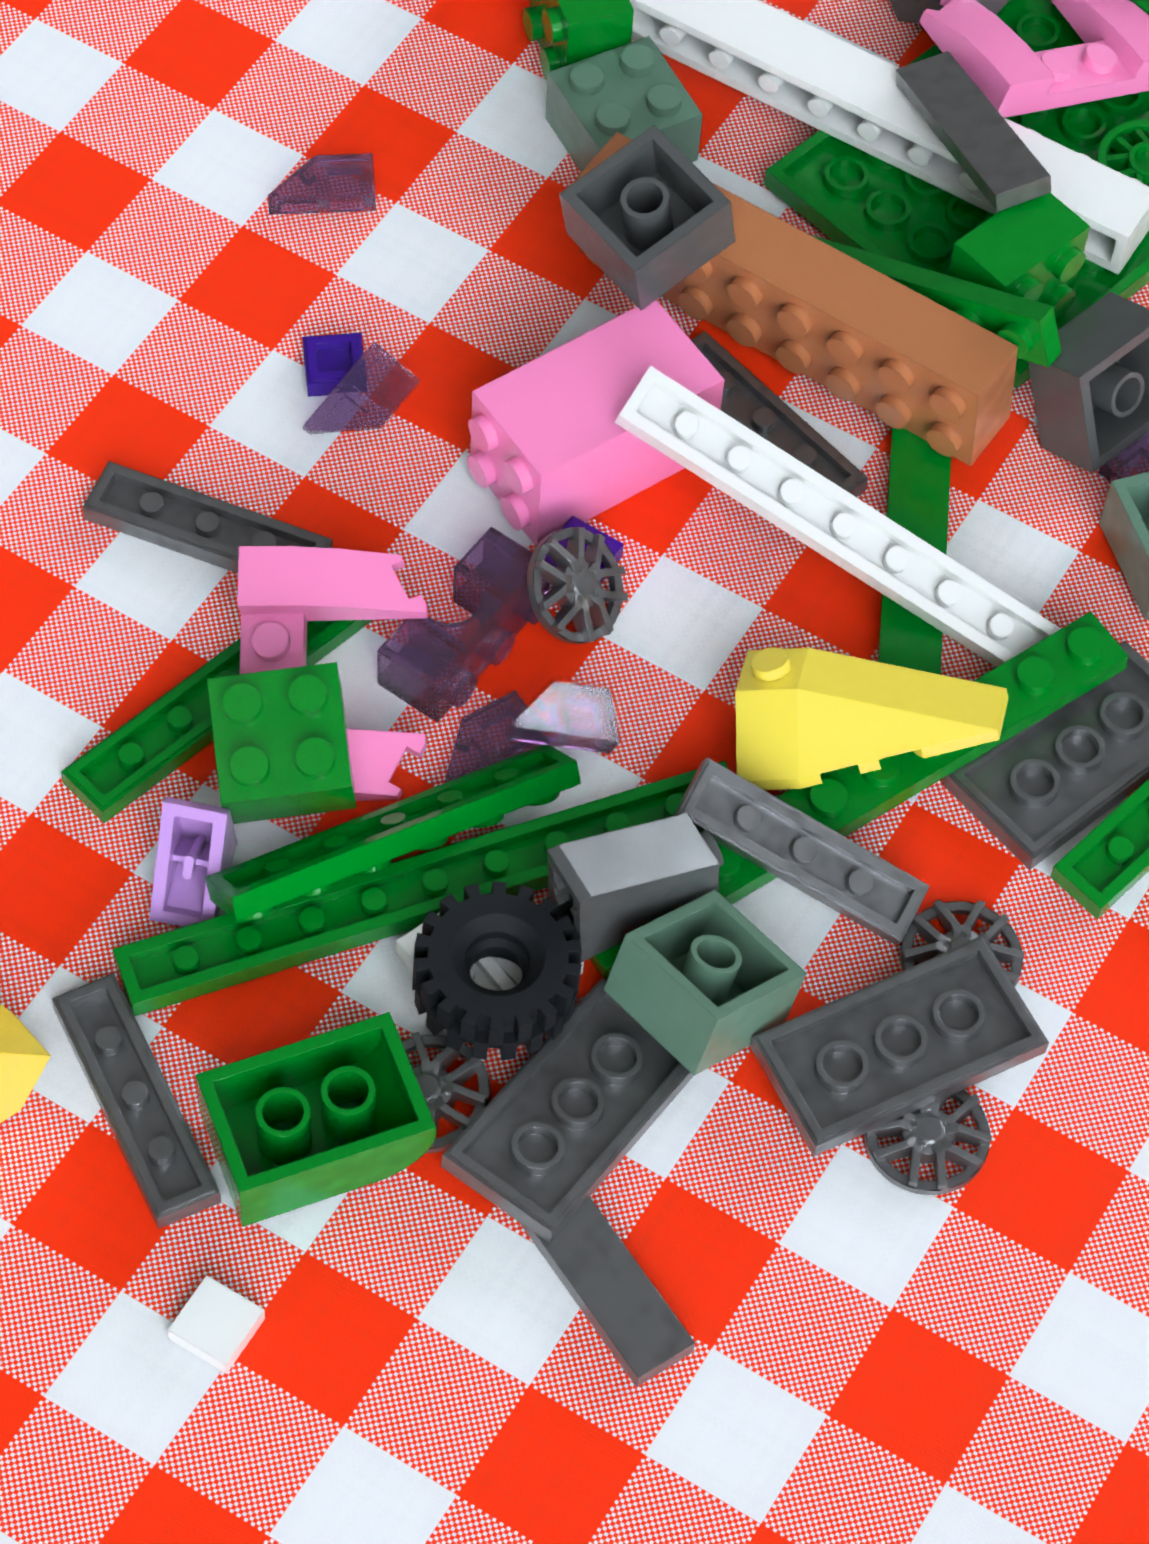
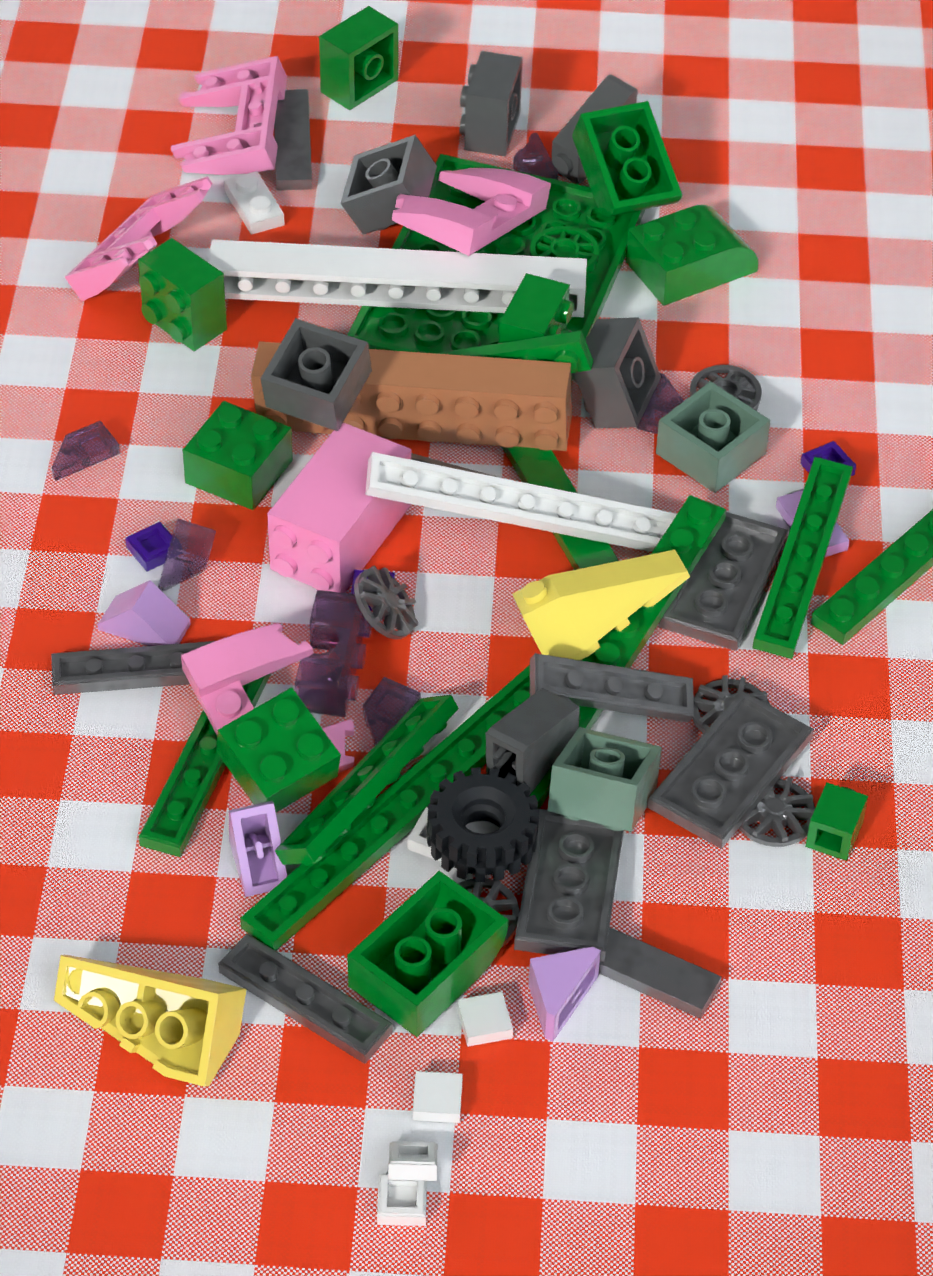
camera: 25 degrees left, 10 degrees down
(83, 1444) = (401, 1202): none -> white tile
(123, 1400) = (412, 1161): none -> white tile
(260, 465) = (145, 617): none -> lavender slope
(345, 1245) = (484, 1019): none -> white tile
(468, 1250) = (560, 984): none -> lavender slope
(517, 281) = (238, 455): none -> green brick
(569, 718) = (428, 677): clear purple tile -> none
(624, 94) = (228, 337): sand green brick -> none
(973, 131) = (468, 261): flat silver tile -> none
(999, 1192) = (836, 821): none -> green brick

